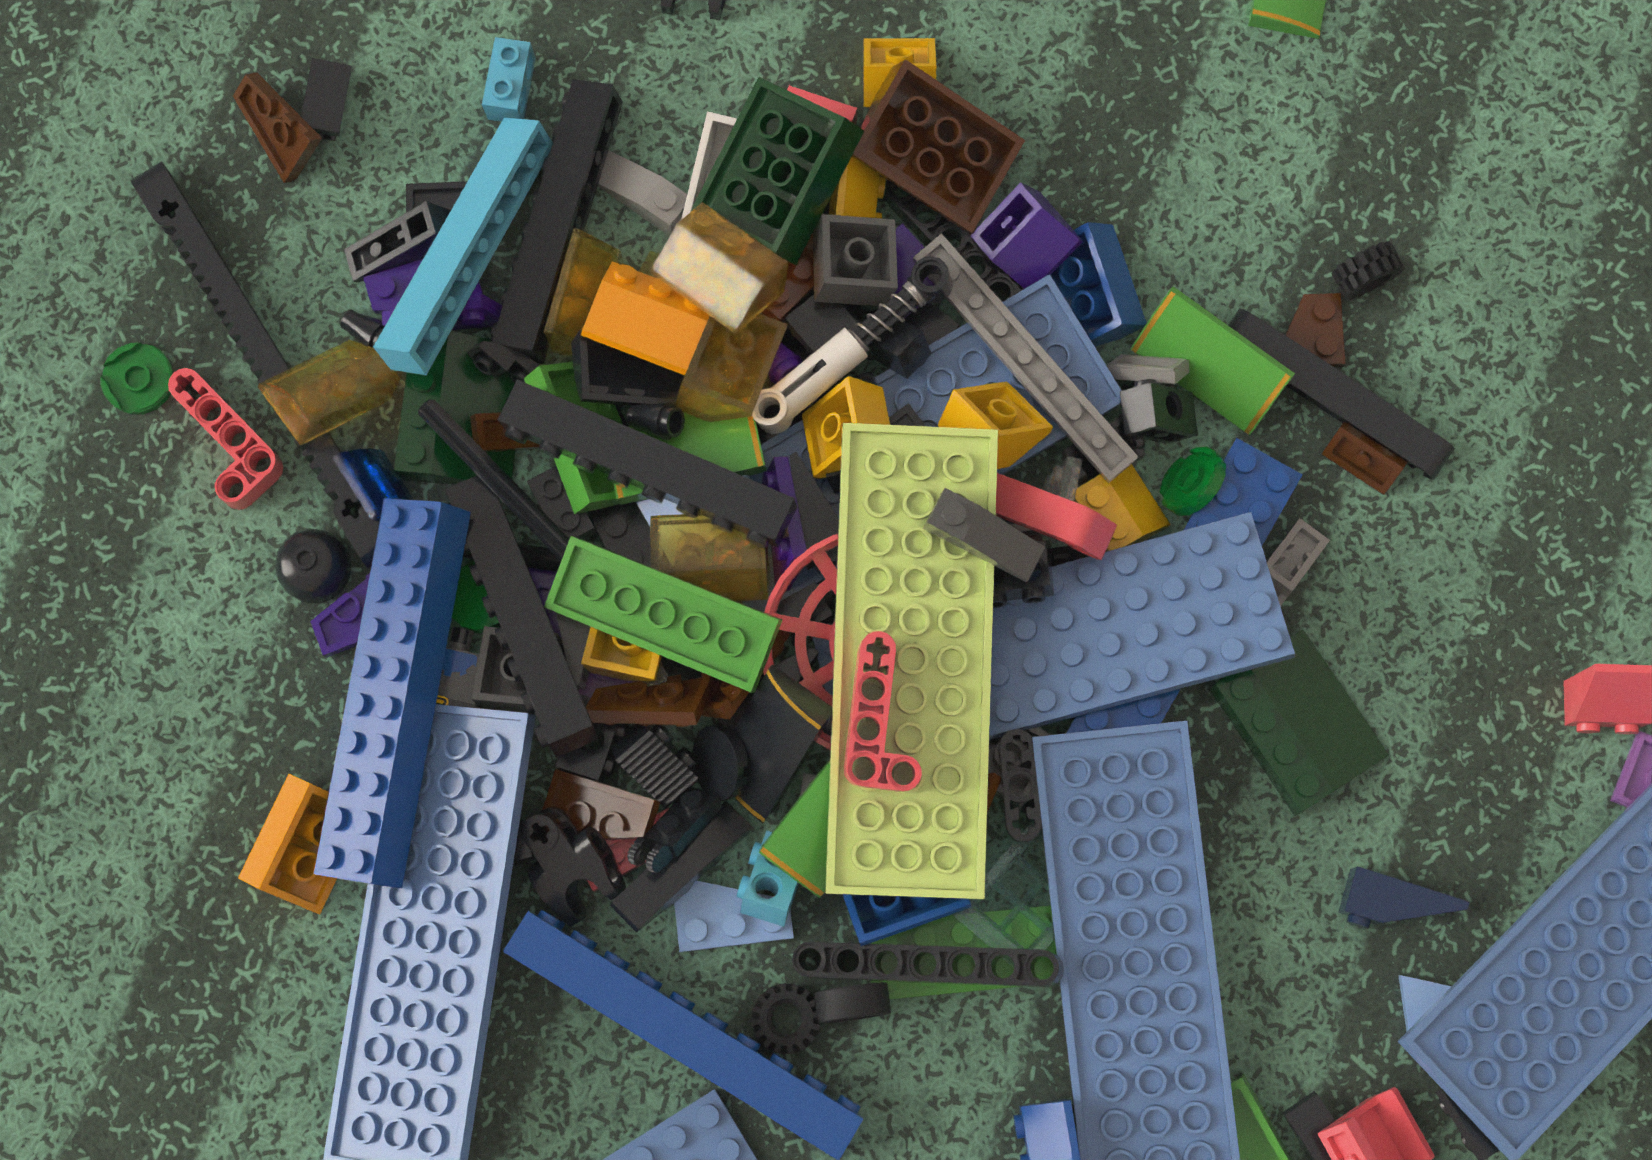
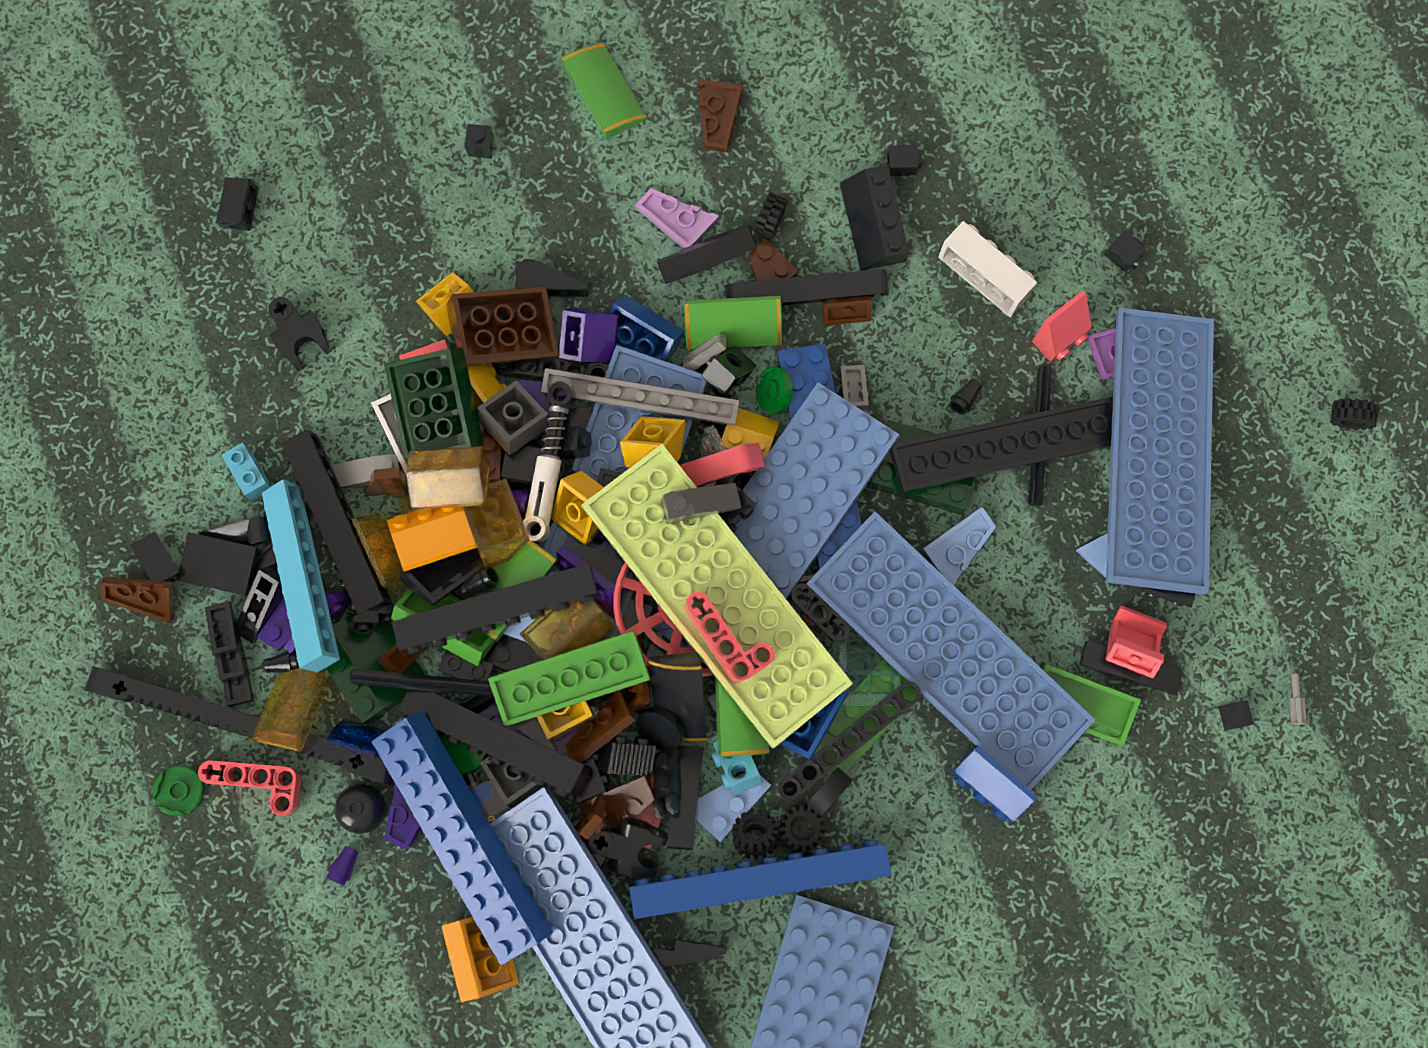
camera: 45 degrees left, 0 degrees up
(239, 614) = (342, 867): none -> dark purple cone
(319, 270) = (229, 653): none -> black slope
(390, 159) = (218, 564): none -> black tile
(442, 145) = (245, 532): none -> black piece
(531, 1043) = (686, 952): none -> black slope
(555, 798) = (592, 820): none -> reddish brown wing
(650, 219) = (387, 482): none -> reddish brown wing
(715, 993) = (755, 846): none -> black tyre
(1028, 118) = (558, 284): none -> black slope
(1250, 185) = (677, 220): none -> lavender wing
(1251, 255) = (707, 254): none -> black slope
(1259, 848) = (958, 545): none -> light blue wing
(1384, 899) = (1038, 519): dark blue slope -> none
(1414, 96) = (719, 112): none -> reddish brown wing
(1416, 774) = (1002, 445): none -> black plate
(1420, 680) = (964, 398): none -> black cone
(1475, 800) = (1042, 404): none -> black axle
(1493, 375) = (874, 218): none -> black slope
(1581, 547) = (987, 268): none -> white brick
(1591, 334) = (903, 160): none -> black brick

